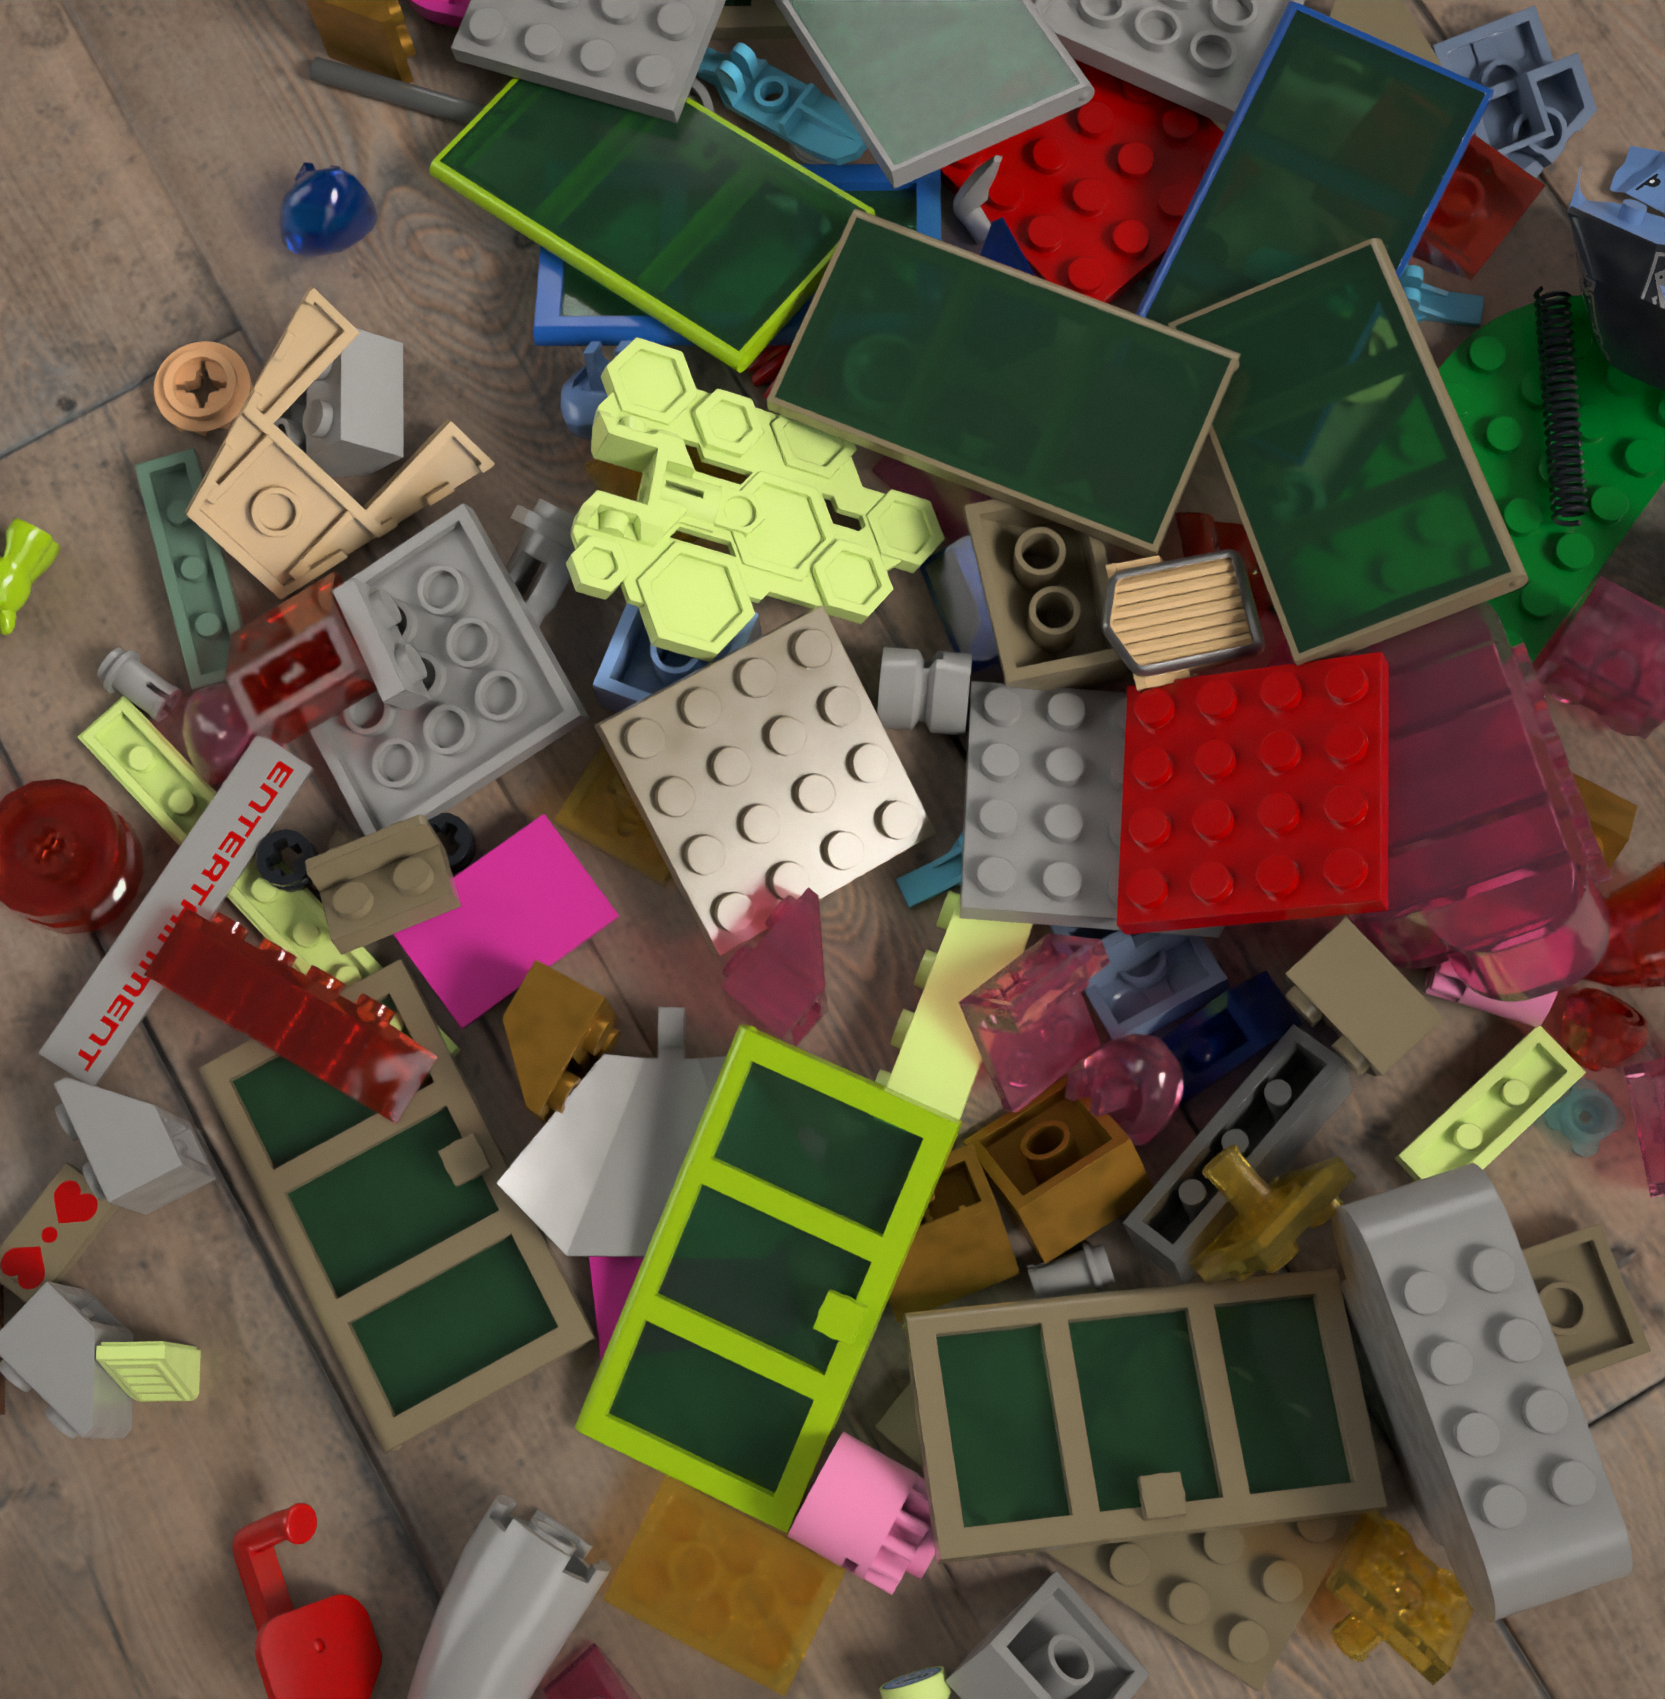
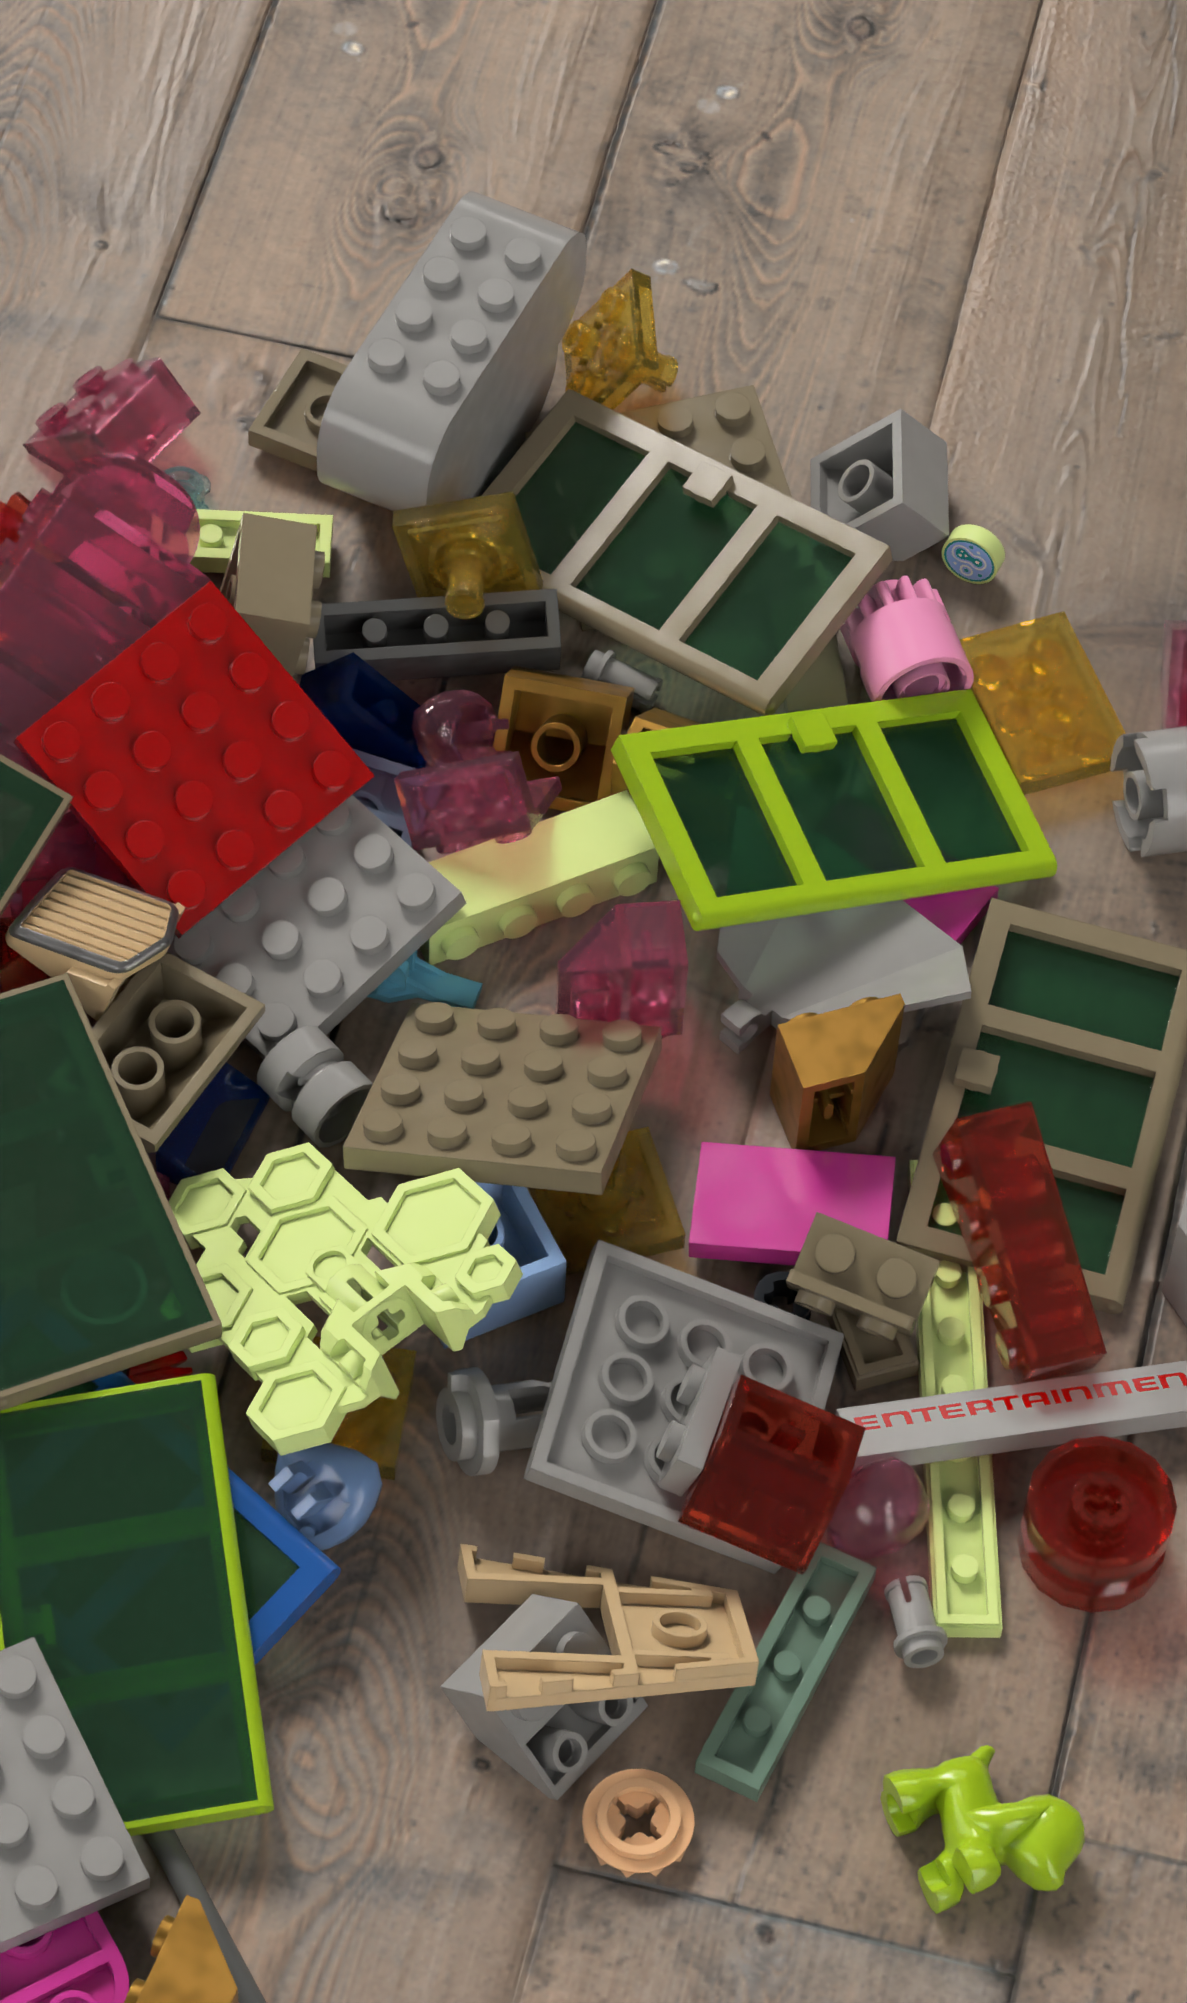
camera: 145 degrees left, 20 degrees down
(270, 854) = (905, 1361): black bush -> none
(325, 212) = (389, 1860): clear blue piece -> none

